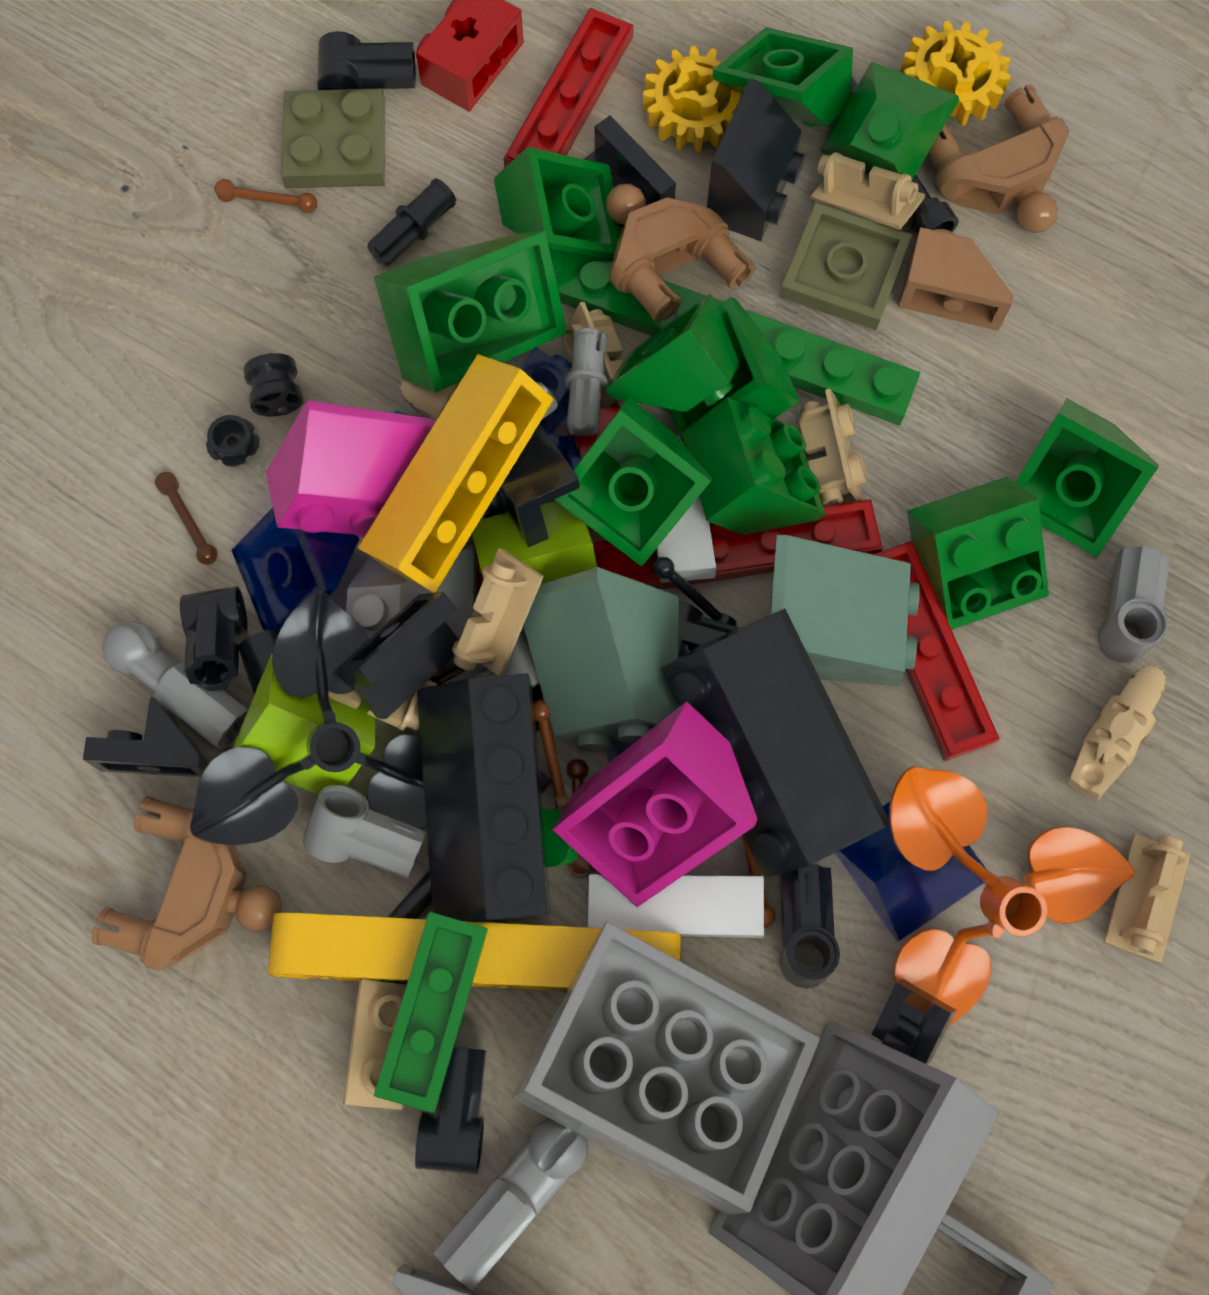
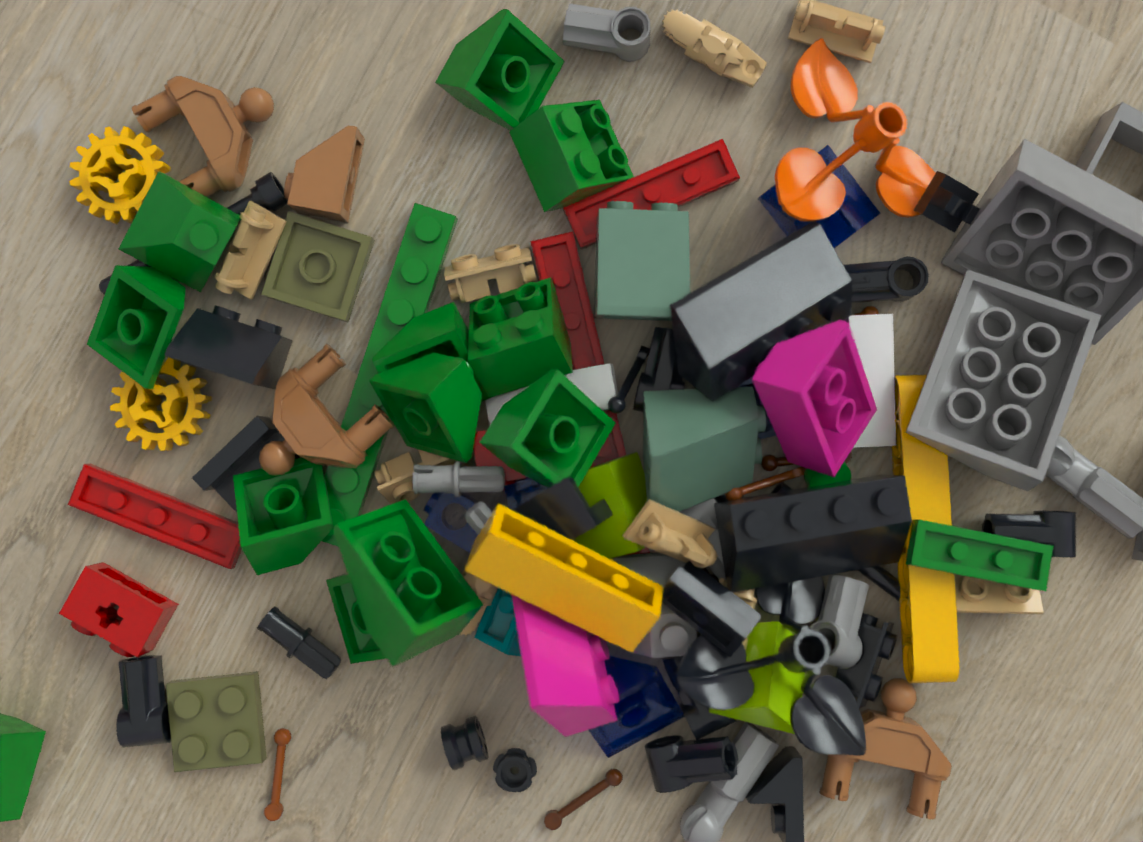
camera: 90 degrees left, 15 degrees up
(329, 887) = (863, 676): none -> black hinge

